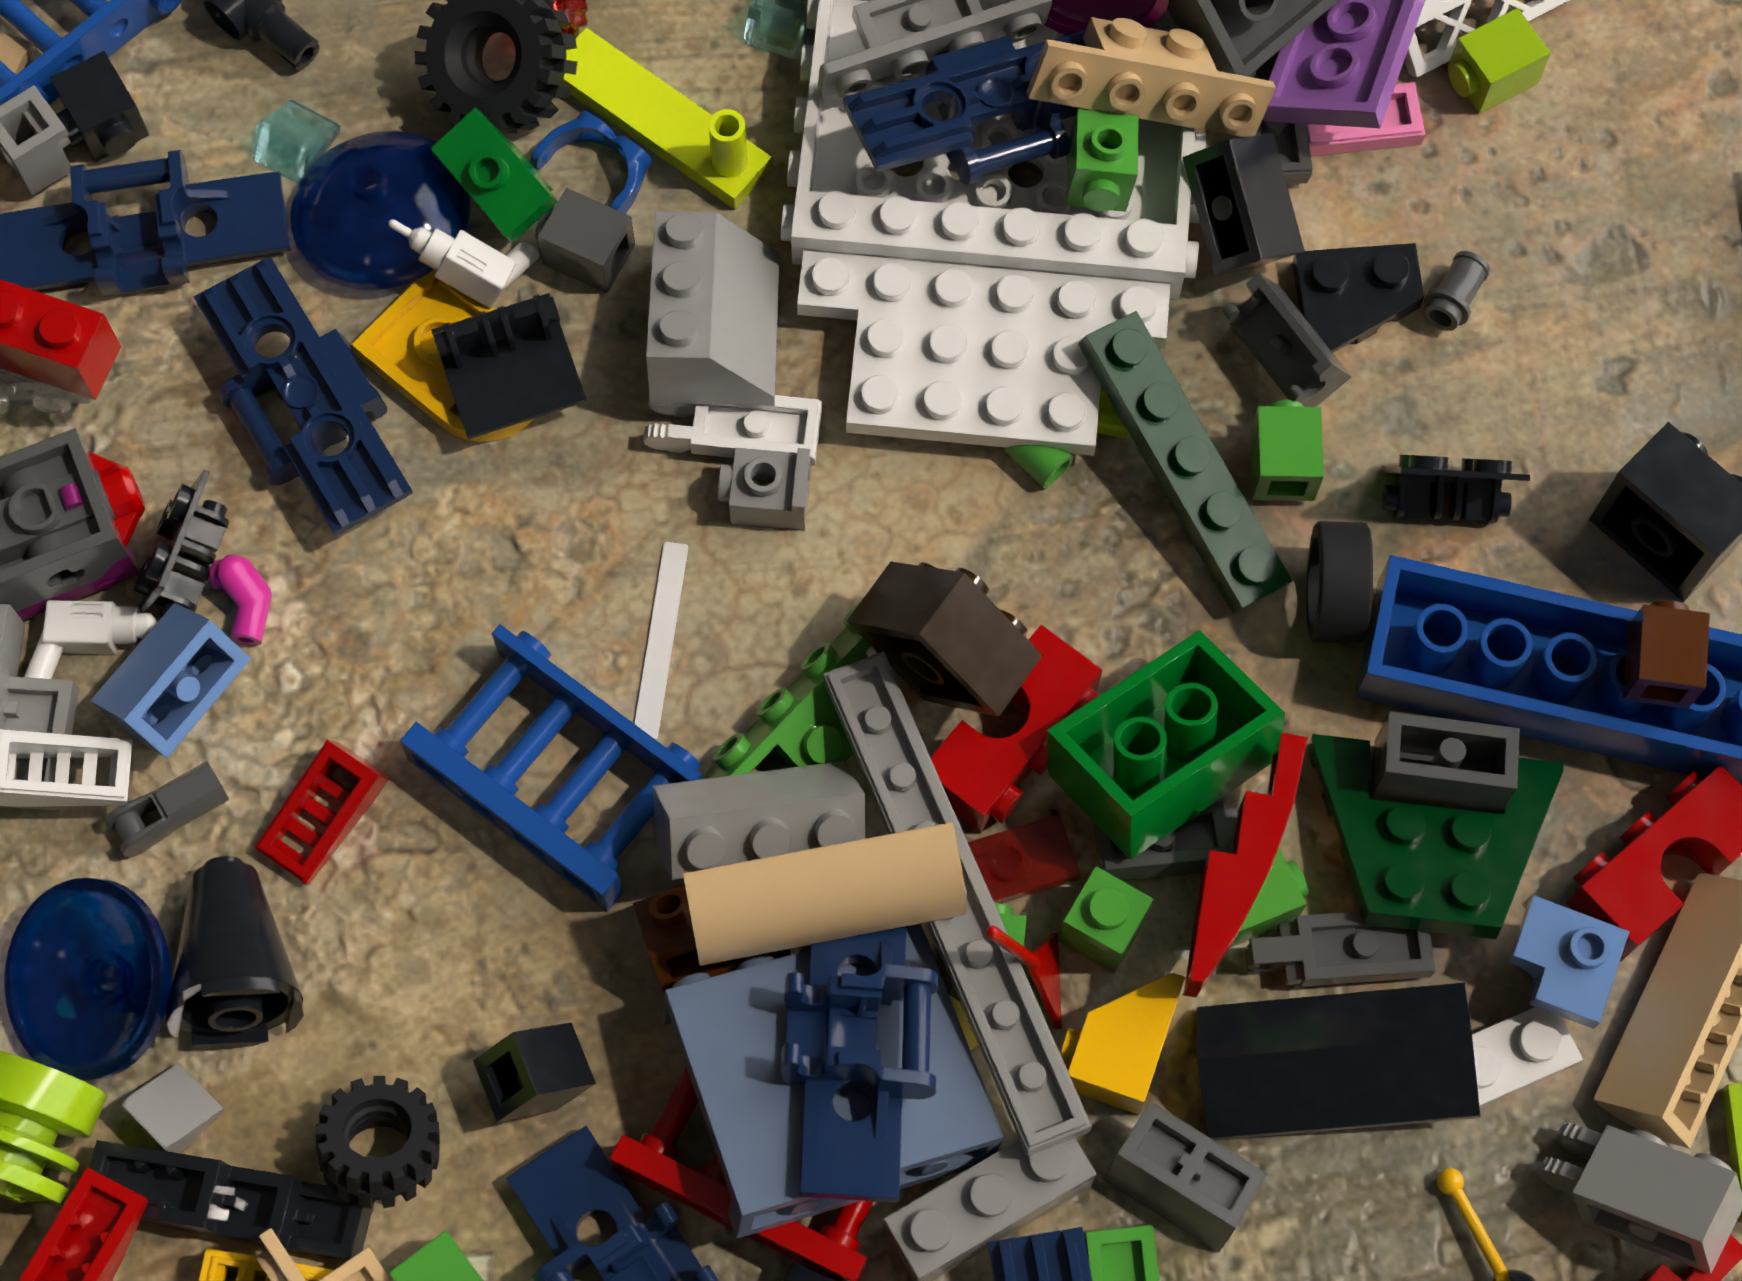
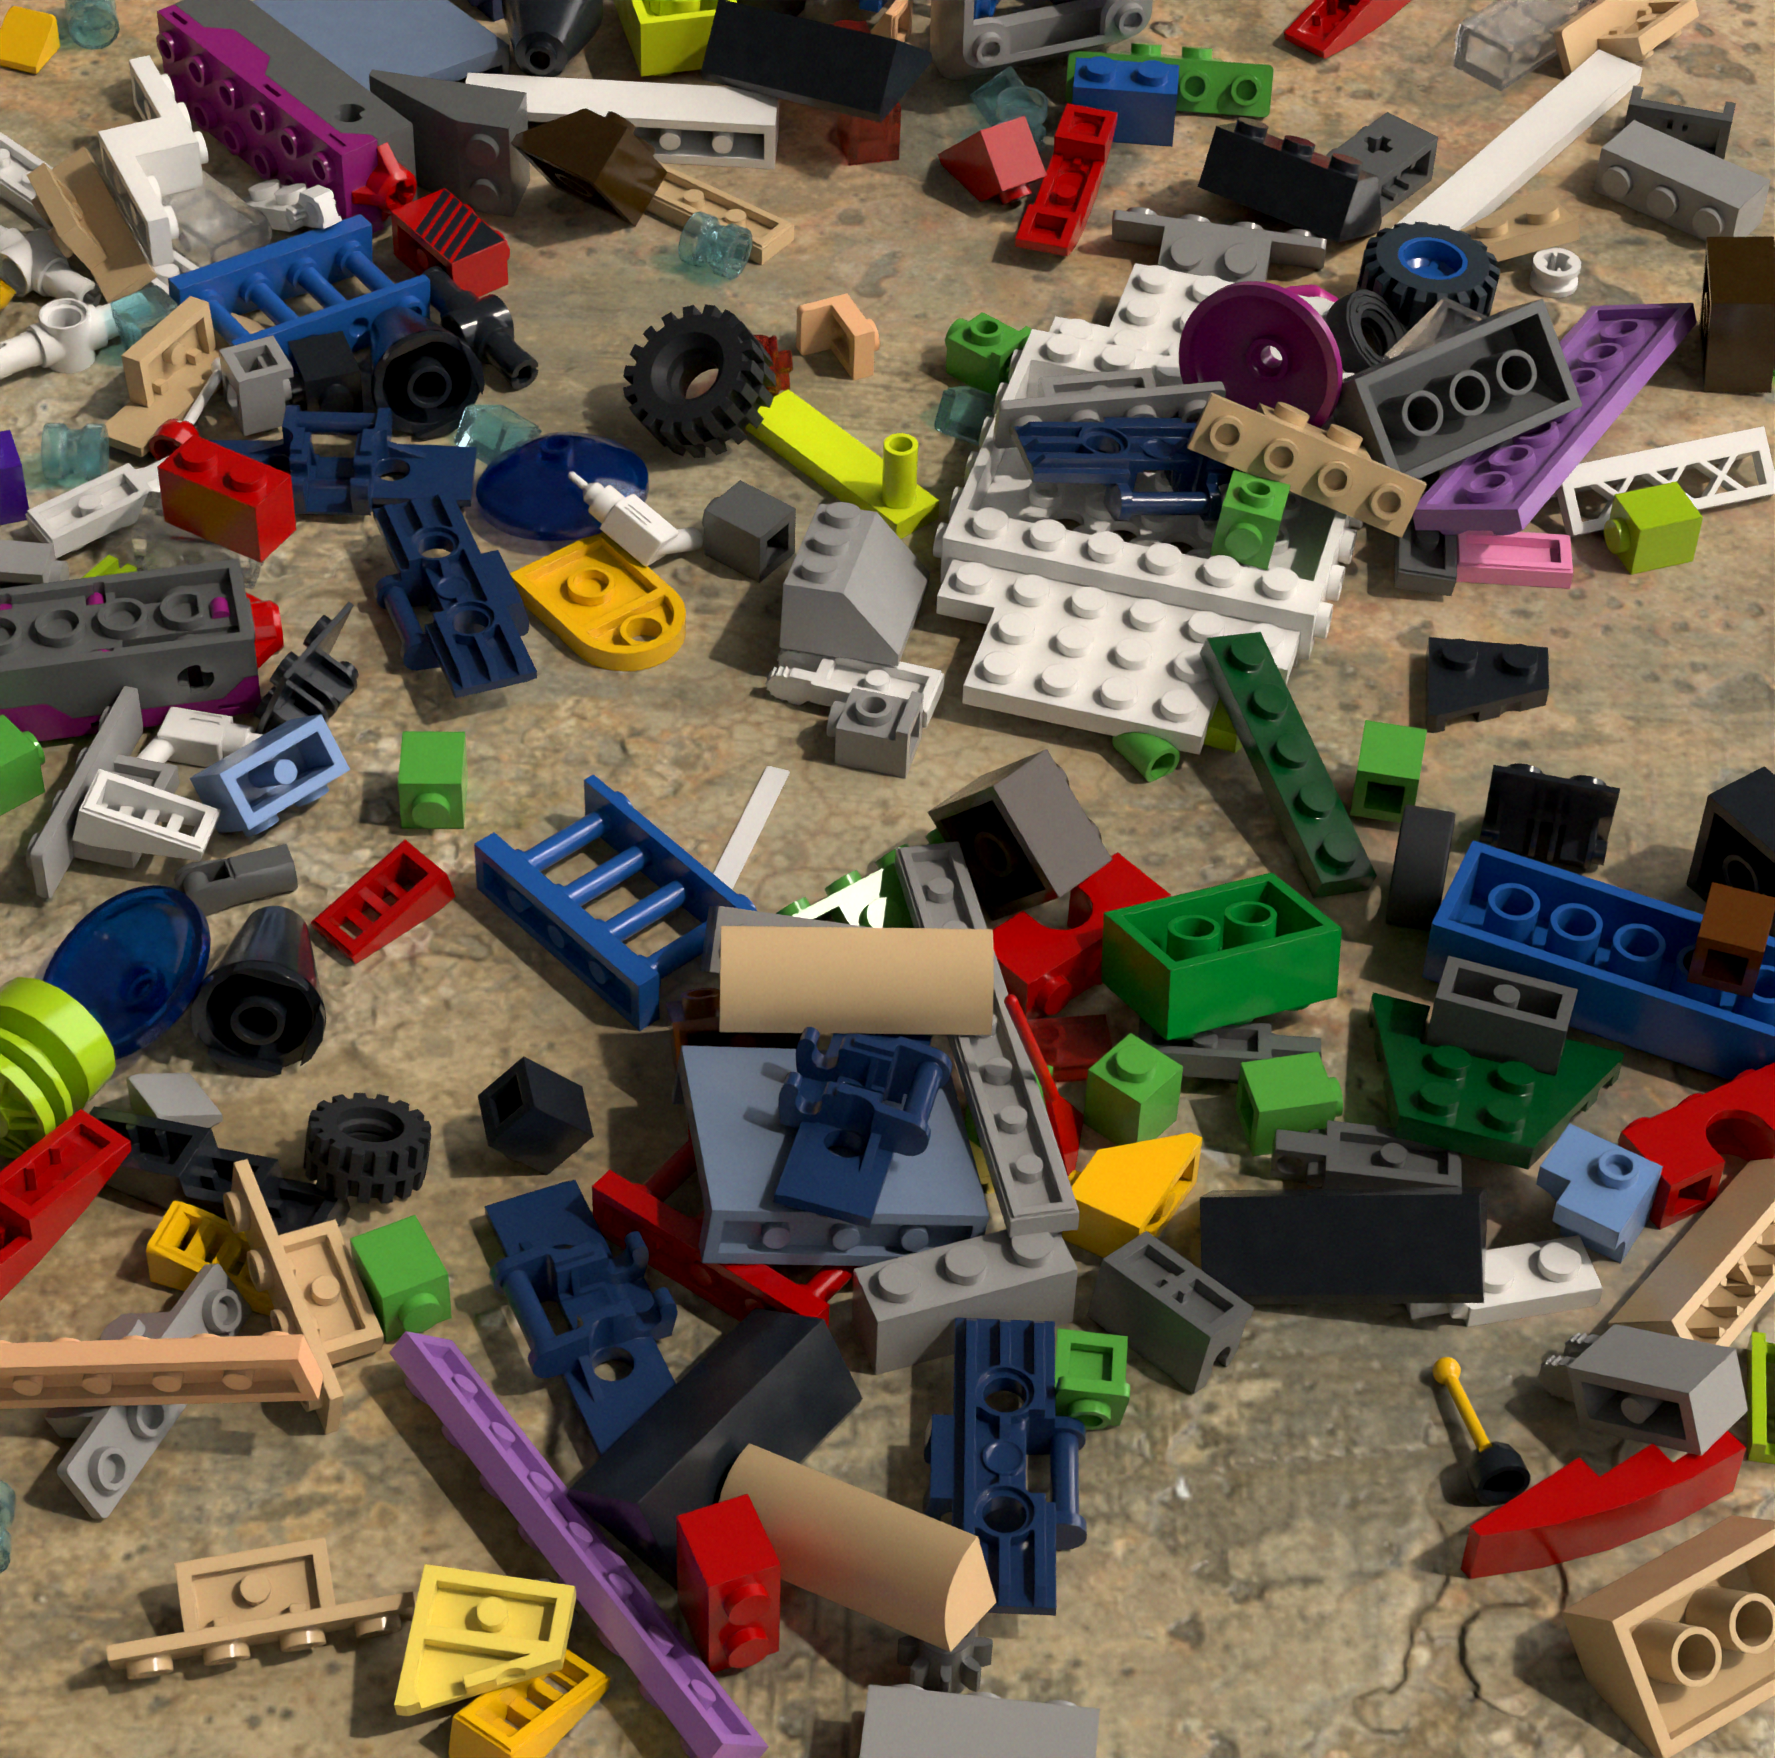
camera: 10 degrees right, 25 degrees down
(195, 84) = (422, 373): none -> black cone
(249, 591) = (360, 734): dark pink arm -> none
(336, 645) = (433, 780): none -> bright green brick
(495, 174) = (675, 462): green brick -> none
(509, 365) = (654, 599): black hinge -> none
(591, 129) = (765, 462): blue cap -> none
(1235, 878) = (1274, 1051): red slope -> none
(1243, 203) = (1382, 579): black brick -> none
(1286, 343) = (1403, 690): dark grey hinge -> none
(1450, 302) = (1574, 694): dark grey pin -> none

